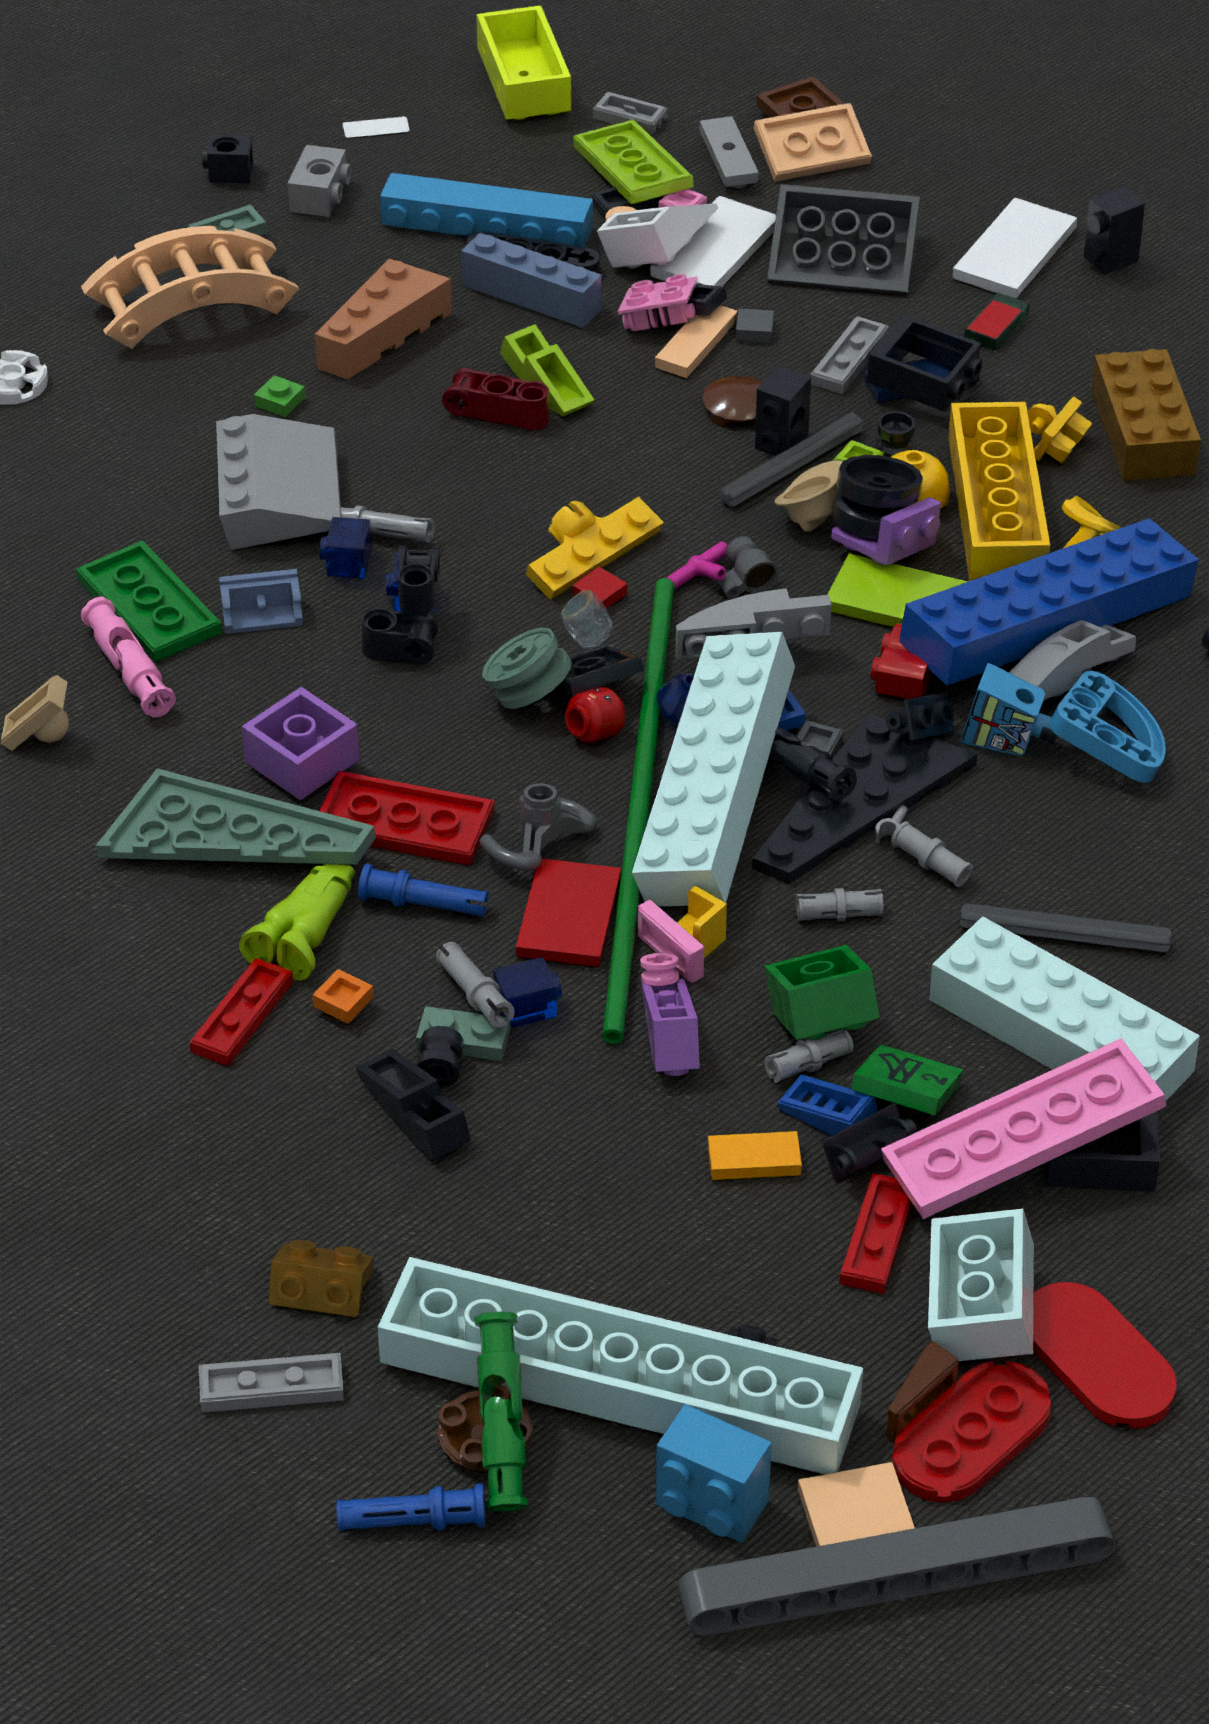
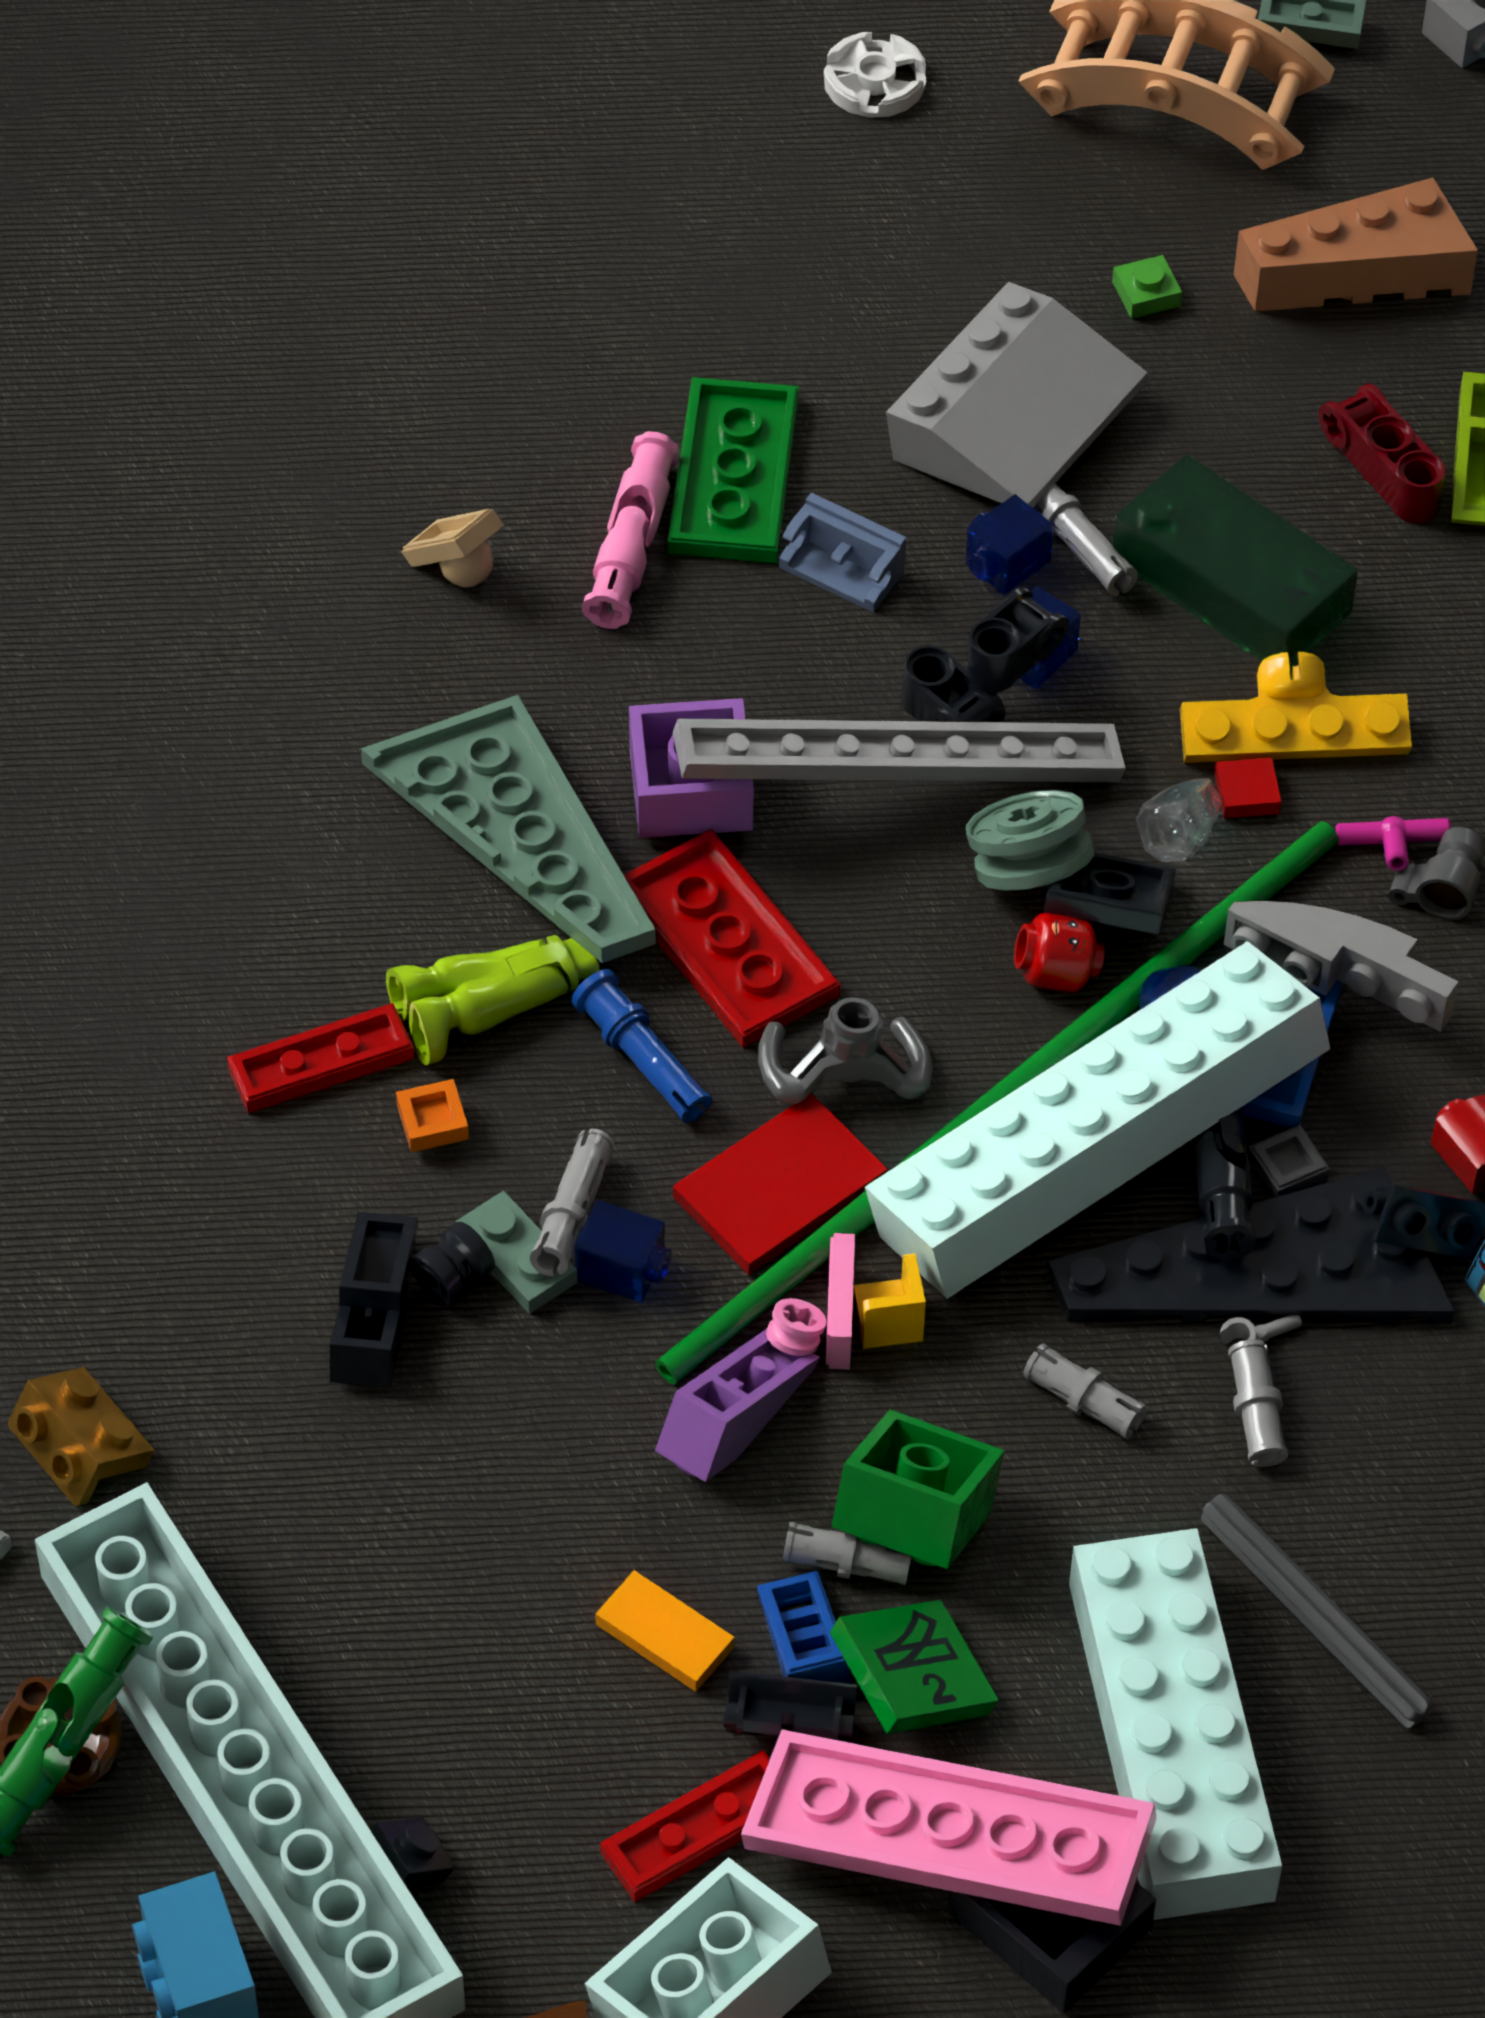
camera: 40 degrees right, 10 degrees up
(409, 666) = (897, 750): none -> light grey plate
(481, 488) = (1234, 562): none -> clear green brick

